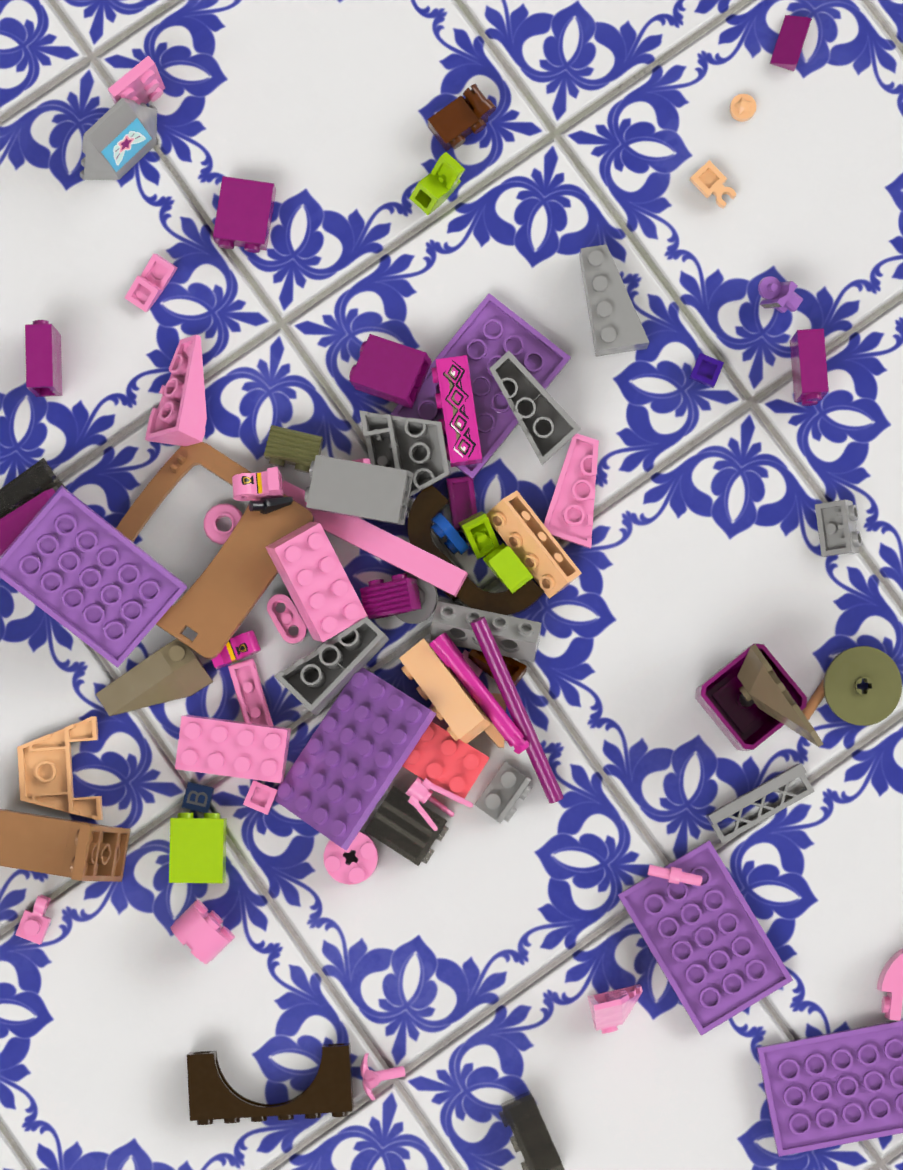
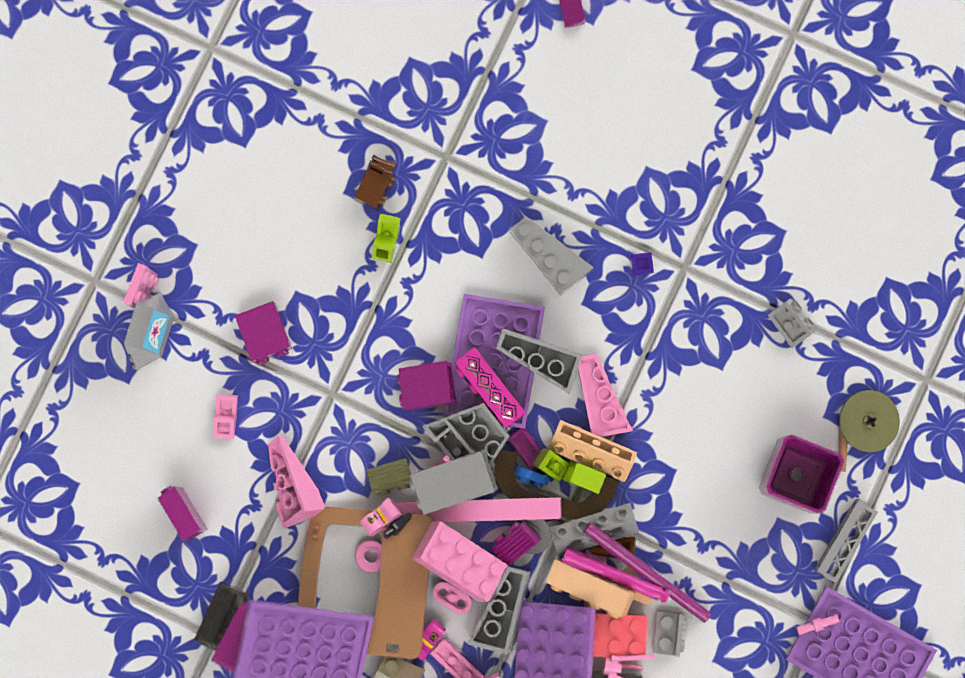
camera: 30 degrees left, 0 degrees up
(710, 181) = (570, 132): light nougat plate -> none
(742, 107) = (564, 68): light nougat tile -> none
(771, 695) = (810, 464): dark tan wedge -> none
(779, 294) = (663, 185): medium lavender hips -> none
(809, 366) = (711, 223): magenta brick -> none

